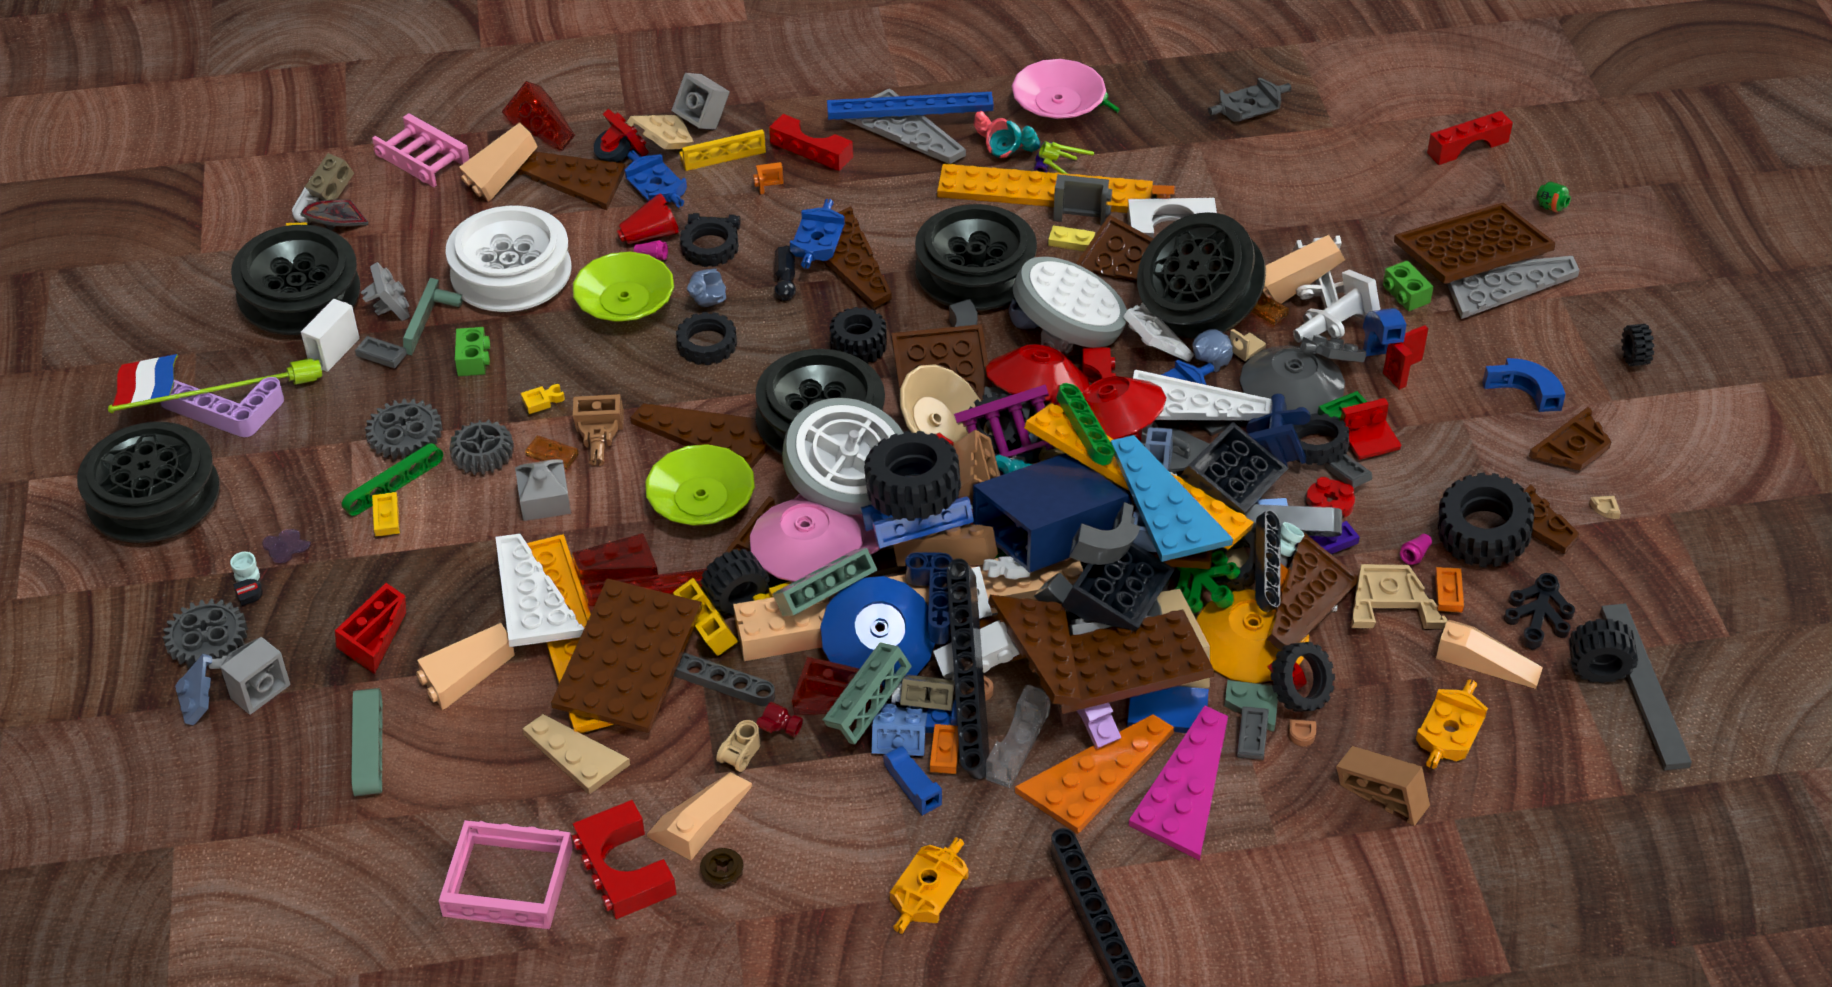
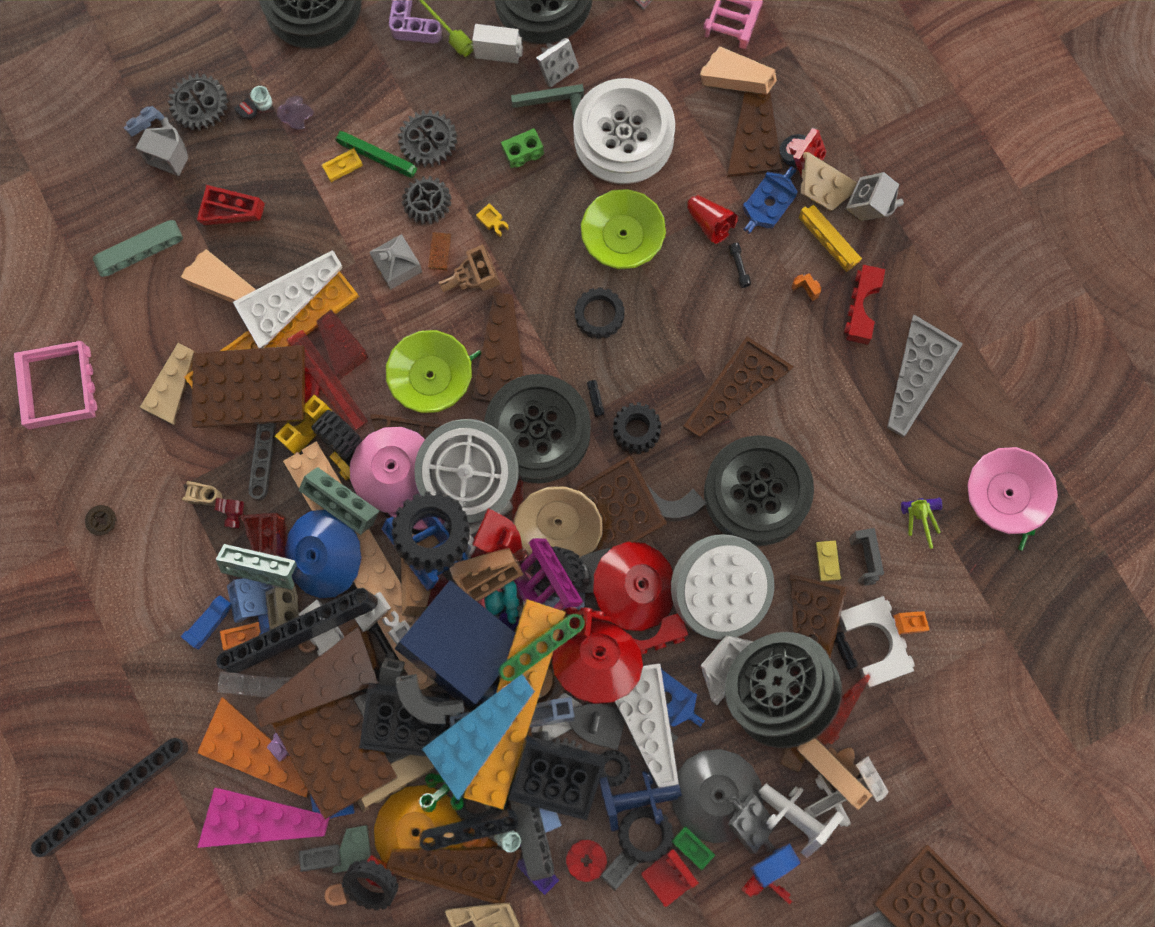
camera: 75 degrees right, 30 degrees up
(380, 352) = (502, 85): dark grey plate -> none
(539, 115) = (818, 71): clear red wedge -> none
(622, 890) = (61, 461): red arch -> none
(655, 249) = (684, 232): dark pink cone -> none
(696, 819) = (135, 486): light nougat wedge -> none
(707, 227) = (709, 253): black tyre -> none
(707, 287) = (648, 292): sand blue hair -> none
(785, 273) = (696, 343): black piece -> none
(821, 224) = (752, 346): blue plate -> none
(909, 105) = (938, 371): blue plate -> none
(922, 900) = (138, 669): light orange plate -> none
(931, 571) = (372, 580): dark blue beam -> none
(1005, 132) = (934, 457): teal hair -> none
(1026, 186) = (884, 512): light orange plate -> none
(1214, 348) = (720, 720): sand blue hair -> none
(1246, 345) = (743, 747): tan bracket -> none
(1250, 101) = (1091, 673): dark grey plate -> none
(1408, 285) = (872, 874): bright green brick -> none
(1449, 142) = (1112, 896): red arch -> none

